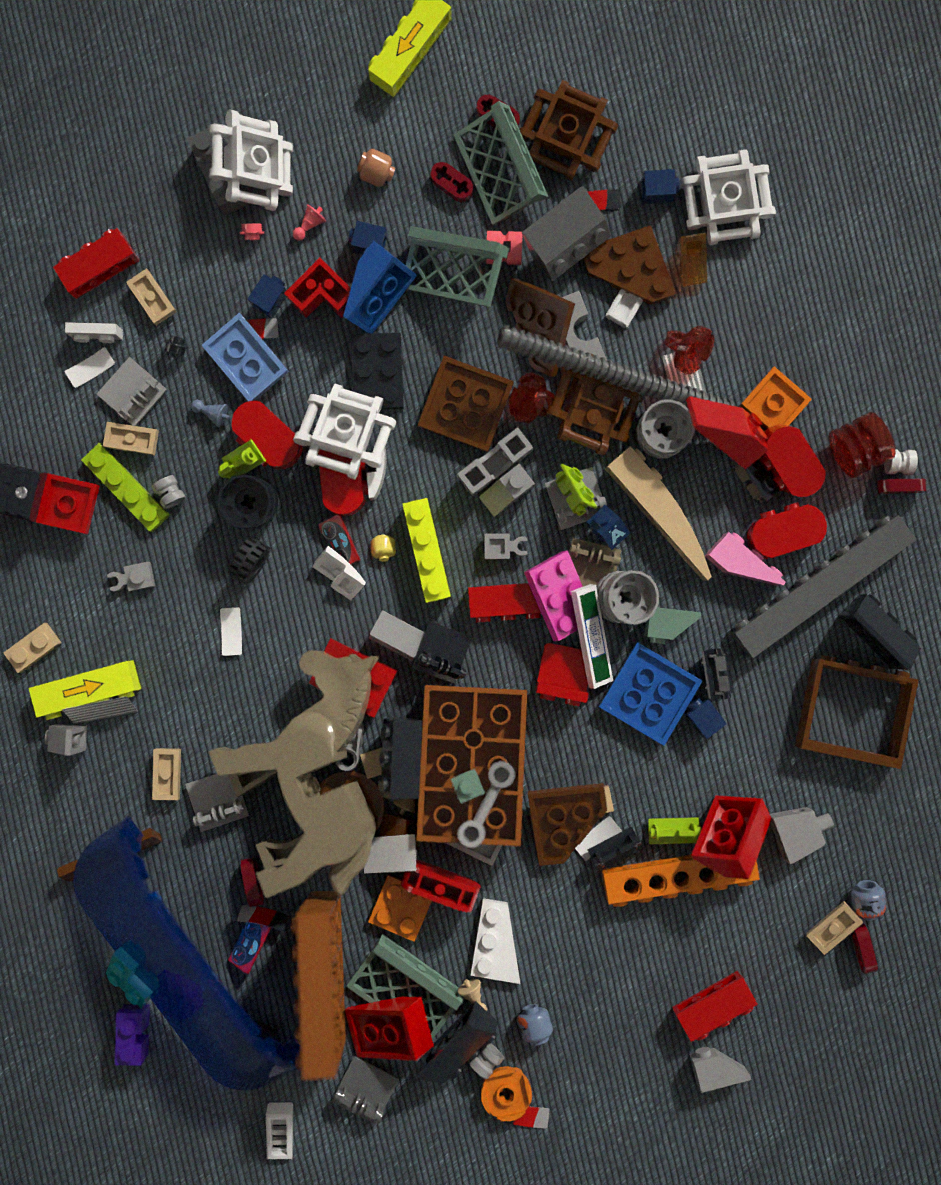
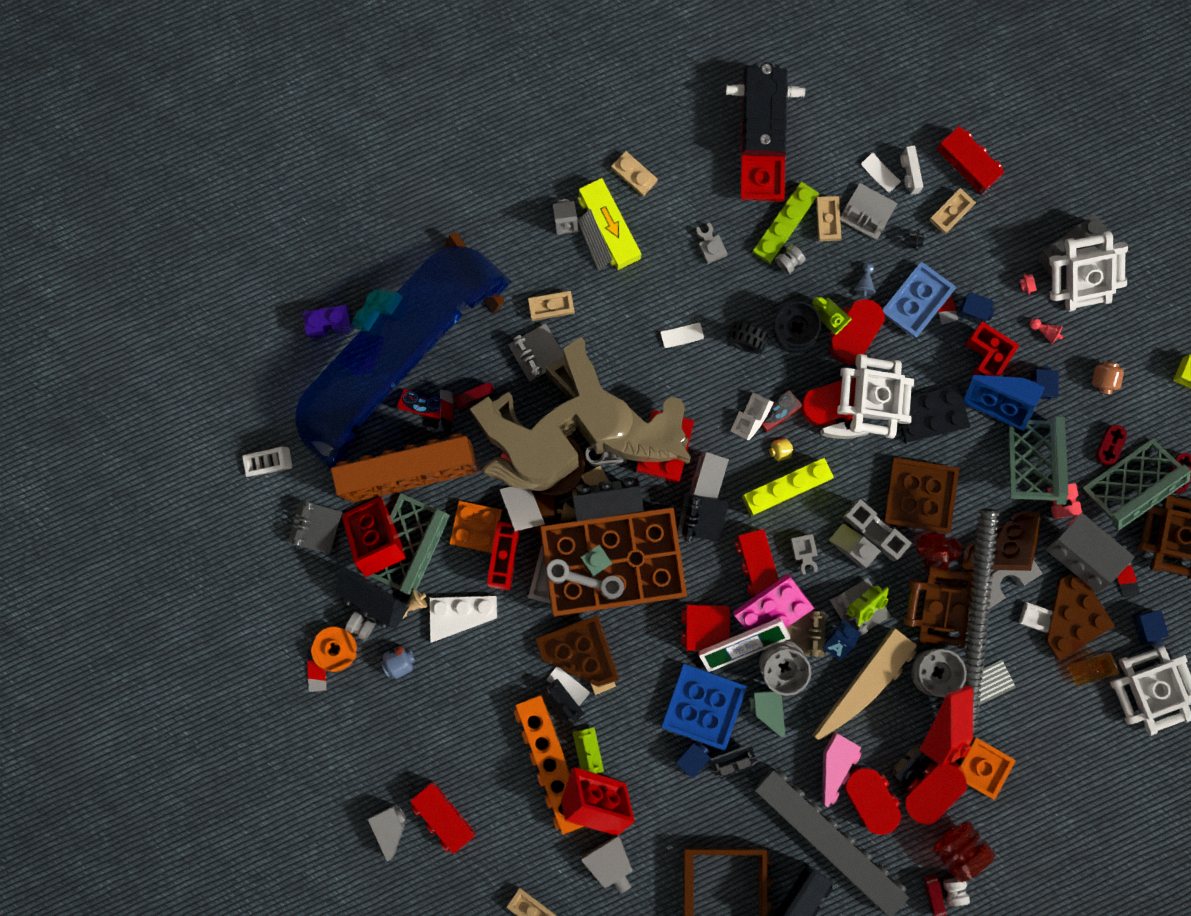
camera: 85 degrees right, 5 degrees down
(690, 348) = (1014, 682): clear red tile -> none

